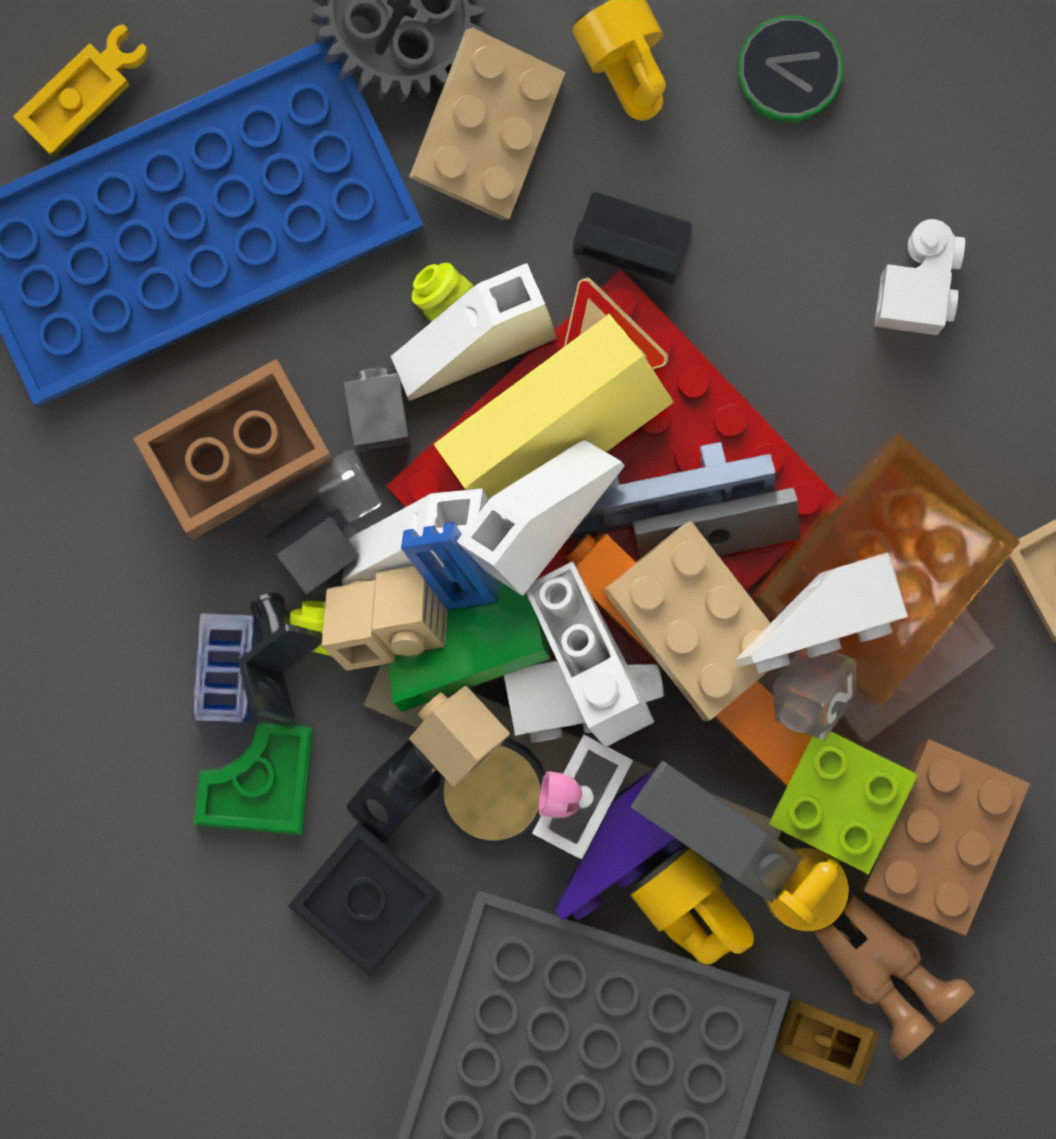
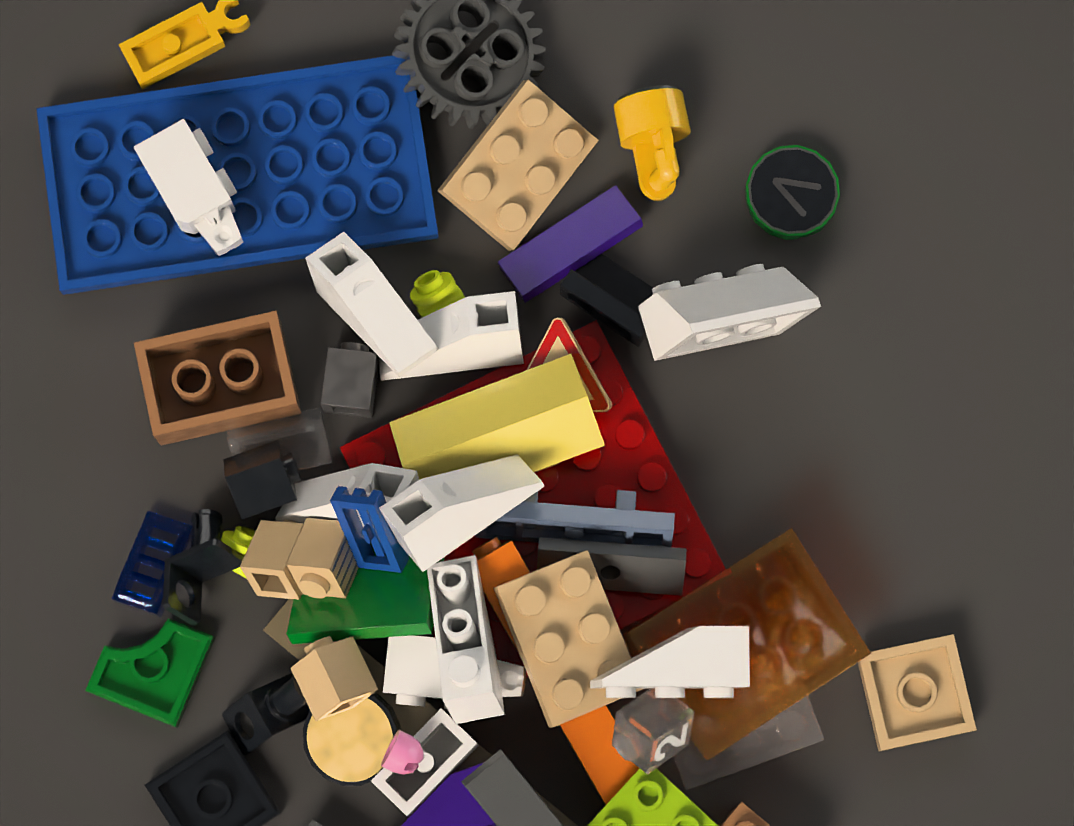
camera: 15 degrees right, 5 degrees down
(140, 249) = (190, 186): none -> white hinge
(373, 322) = (369, 304): none -> white slope
(568, 193) = (570, 243): none -> dark purple tile
(757, 218) = (724, 310): none -> white slope
(922, 296) = (846, 417): white brick -> none

